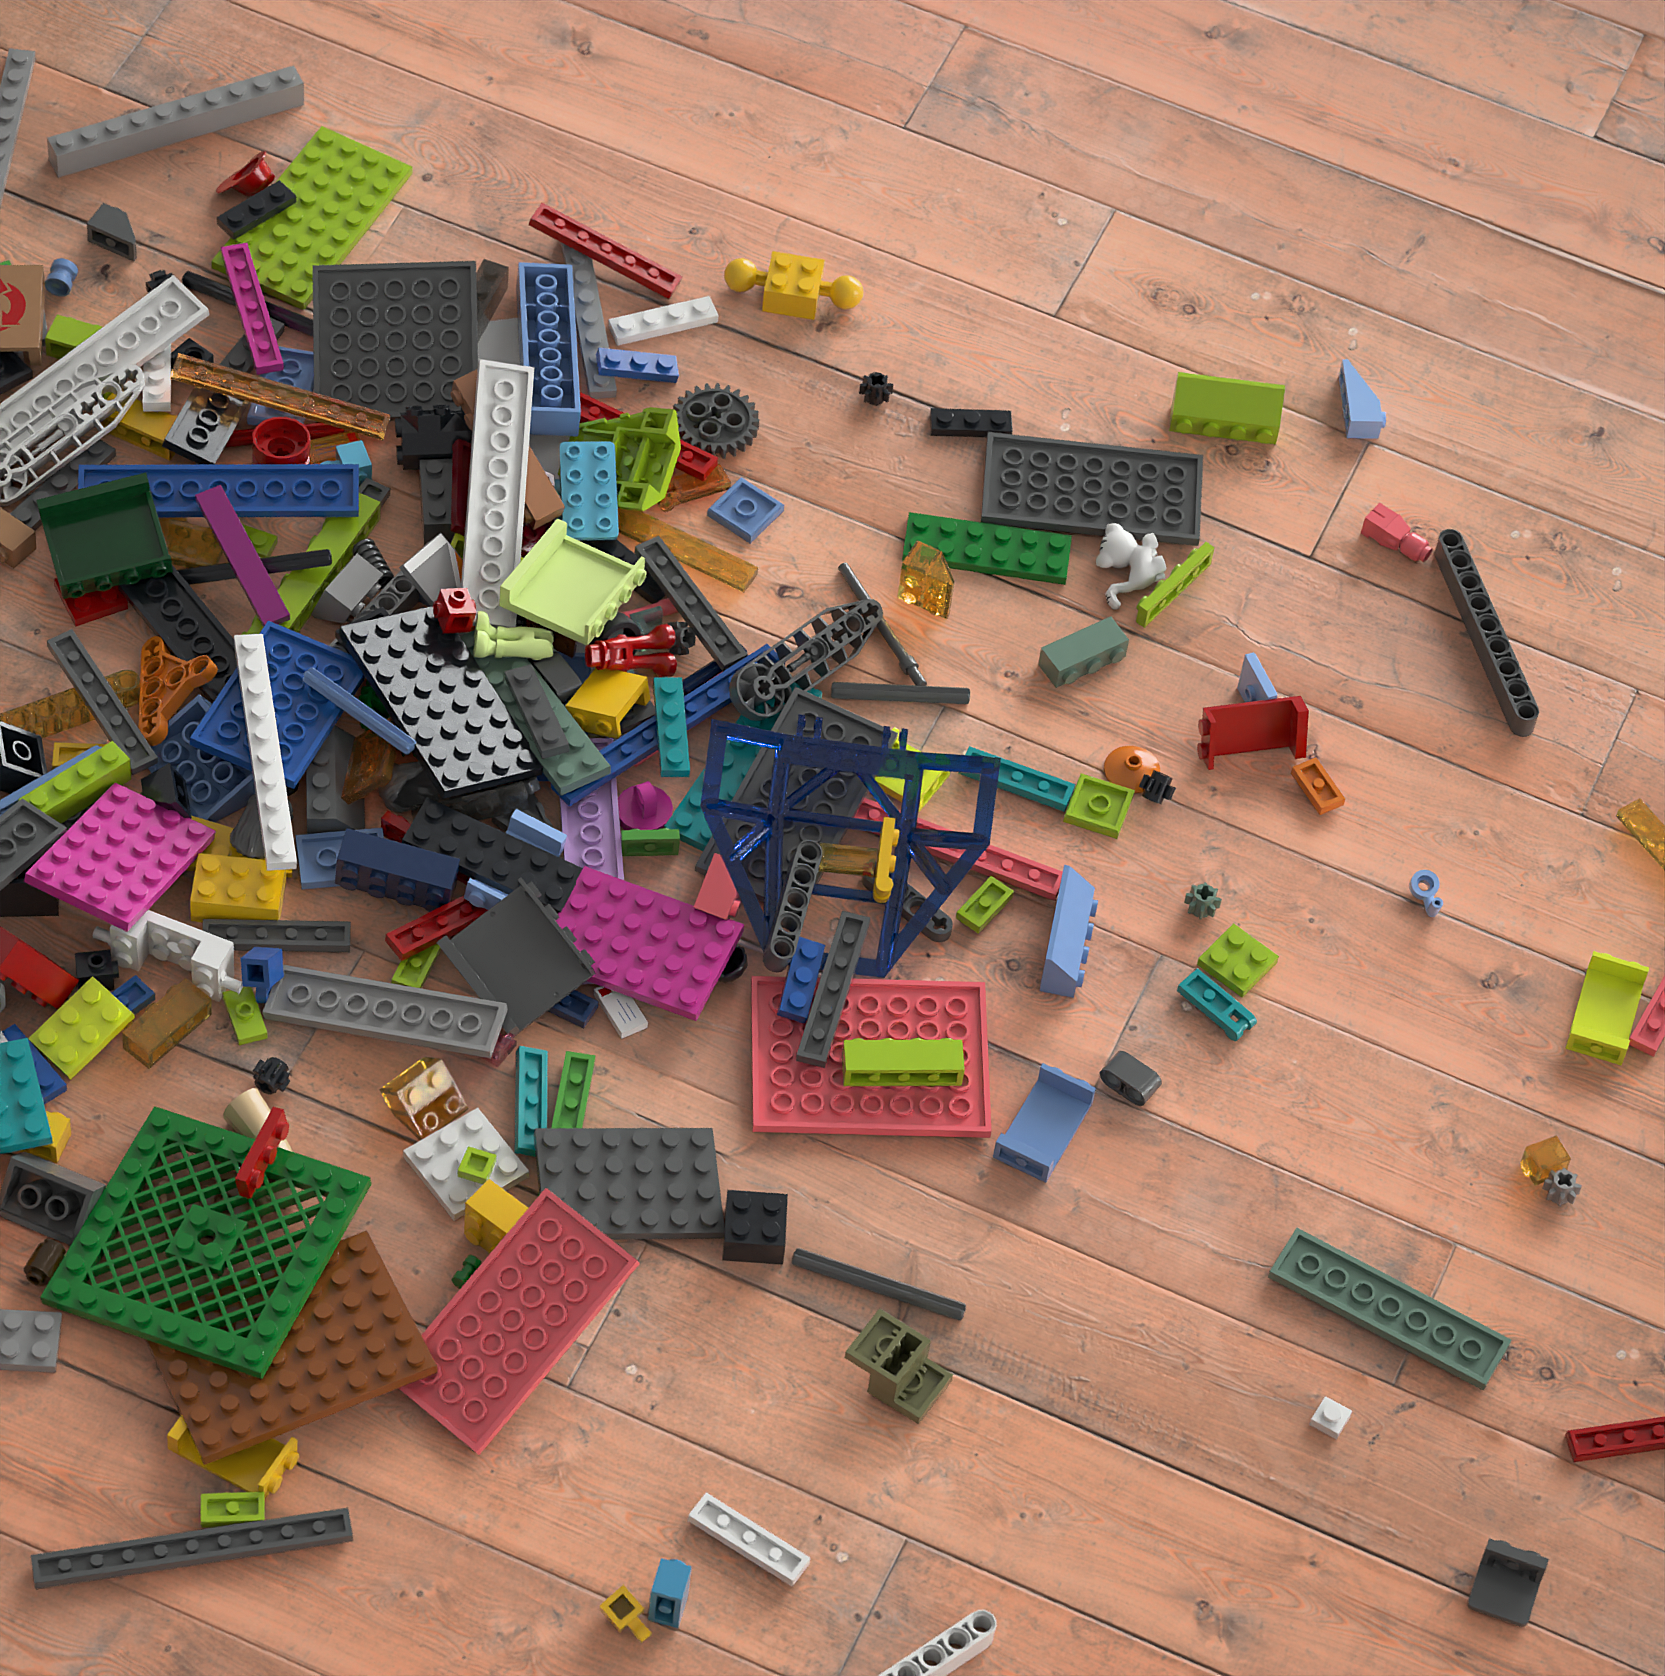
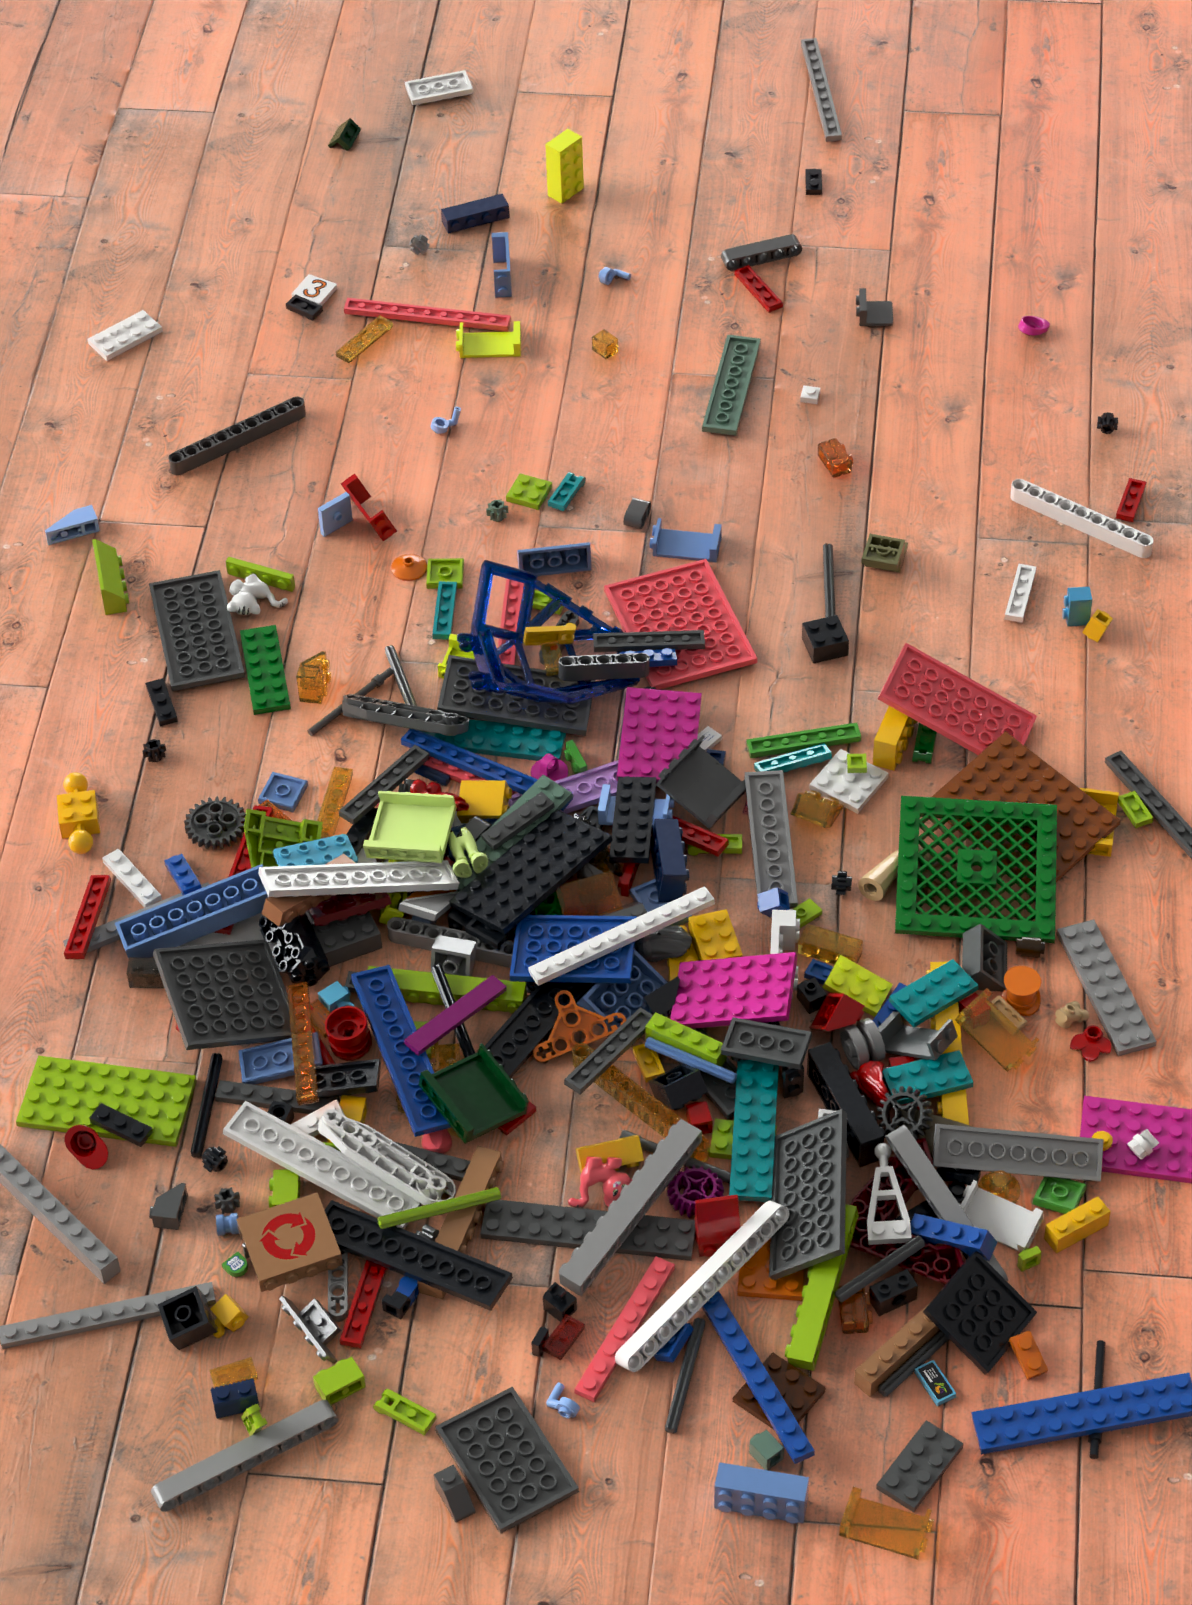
camera: 100 degrees left, 5 degrees down
(95, 285) = (227, 1200): none -> dark grey gear
(252, 308) = (220, 1092): dark pink plate -> none
(262, 1152) = (914, 846): red plate -> none
(283, 934) = (728, 899): dark grey plate -> none
(359, 711) = (566, 899): medium blue axle -> none
(370, 552) = (417, 960): dark grey piece -> none
(455, 610) = (461, 876): red brick -> none
(635, 1179) = (826, 700): dark grey plate -> none
(671, 727) = (493, 761): teal plate -> none
(718, 891) = (607, 707): coral slope -> none
(903, 1062) = (684, 598): lime brick -> none
(1083, 652) = (333, 602): sand green brick -> none
(1157, 787) = (423, 546): black gear -> none
(1157, 1390) = (835, 457): none -> clear orange brick
(1318, 786) = (387, 482): orange plate -> none
(1394, 533) = (175, 489): coral piece -> none
(1561, 1187) = (620, 333): light grey gear -> none

